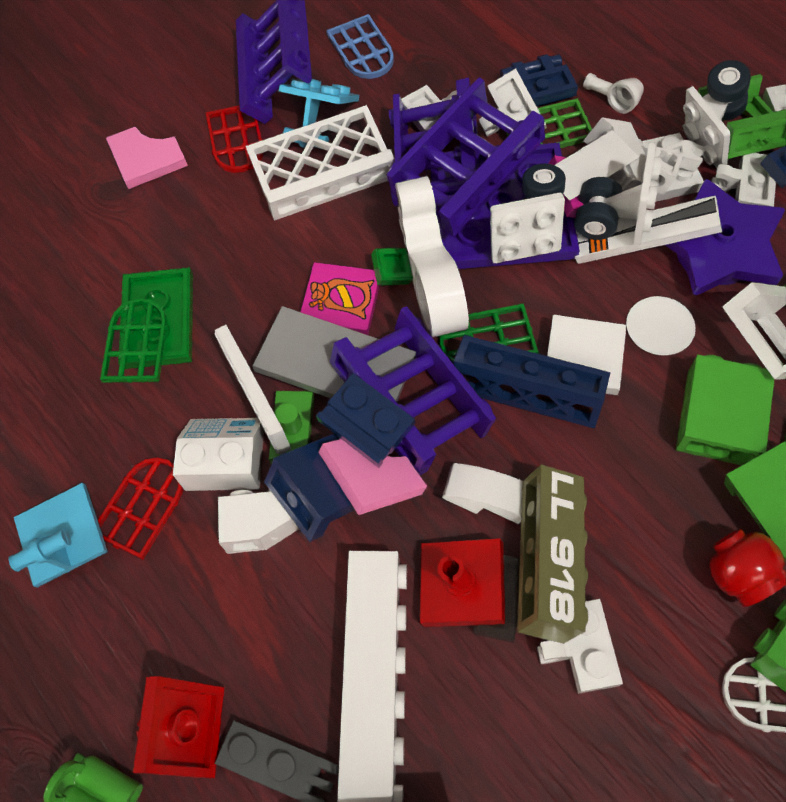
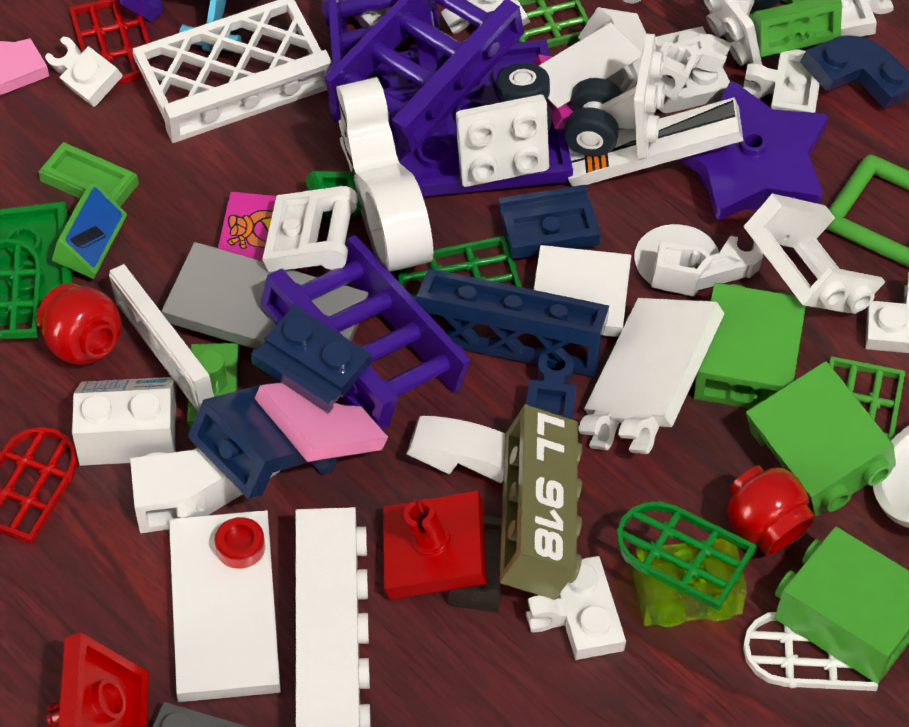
camera: 10 degrees left, 10 degrees down
(188, 373) = (79, 323): none -> red piece
(204, 294) = (89, 232): none -> slope
(209, 247) = (73, 169): none -> bright green tile
(212, 163) = (85, 72): none -> white plate
(288, 630) = (221, 615): none -> white tile
(303, 574) = (239, 542): none -> red tile
(361, 295) = (296, 228): none -> white plate
(560, 449) = (553, 390): none -> dark blue plate
(561, 292) = (549, 219): none -> dark blue plate
(644, 431) = (650, 371): none -> white tile
(675, 337) = (691, 269): none -> white piece
(685, 629) = (692, 567): none -> green window
(698, 617) = (670, 607): none -> clear neon green brick

